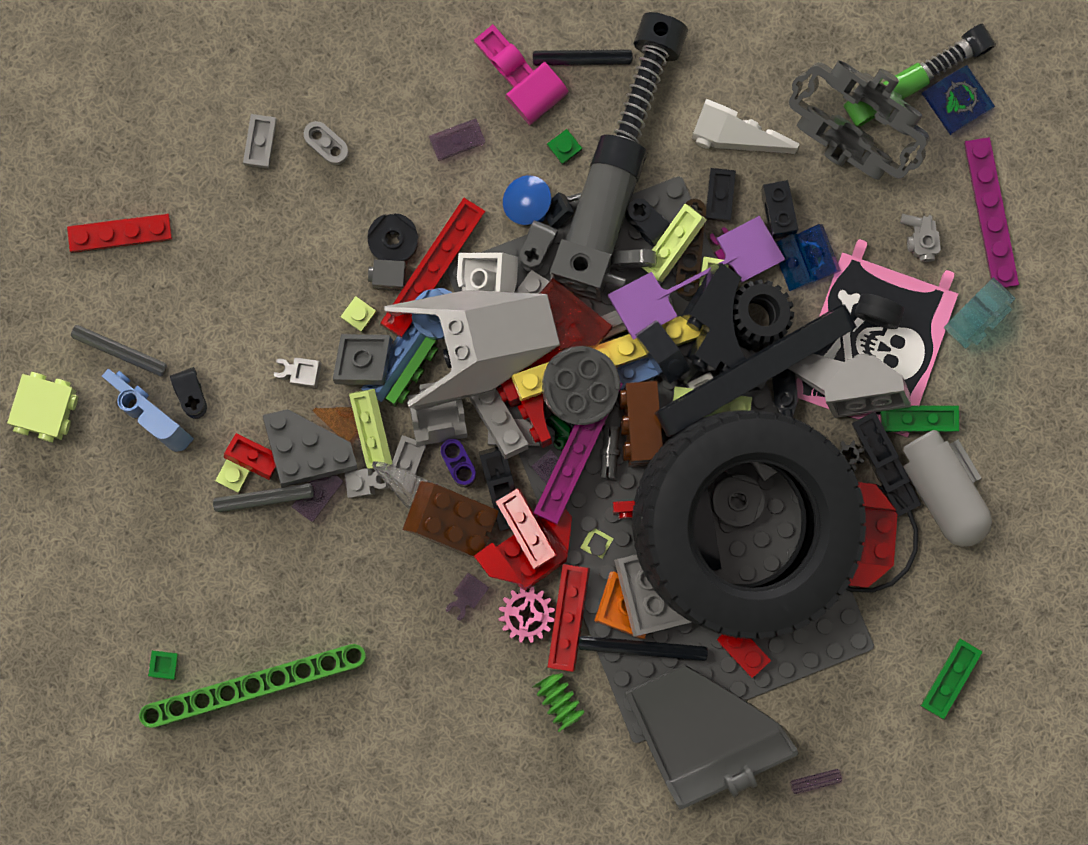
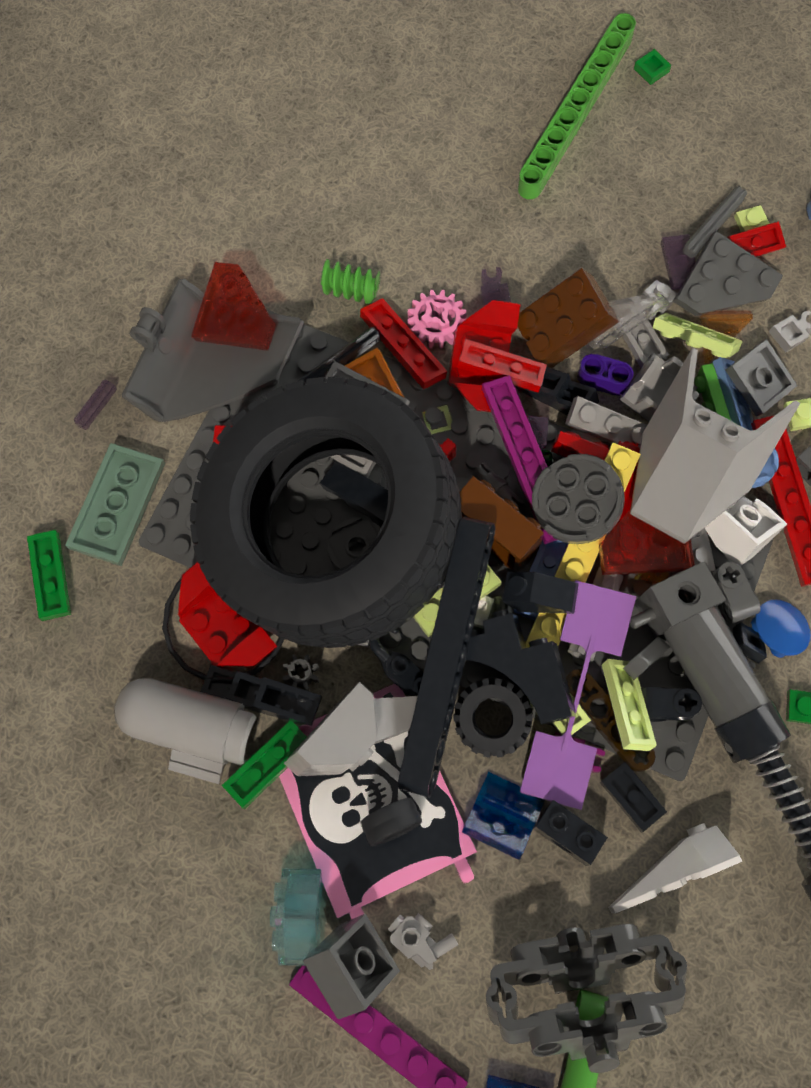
camera: 140 degrees right, 10 degrees down
(662, 752) = (233, 311): none -> clear red plate
(865, 688) = (115, 504): none -> sand green plate
(975, 255) = (351, 966): none -> dark grey brick

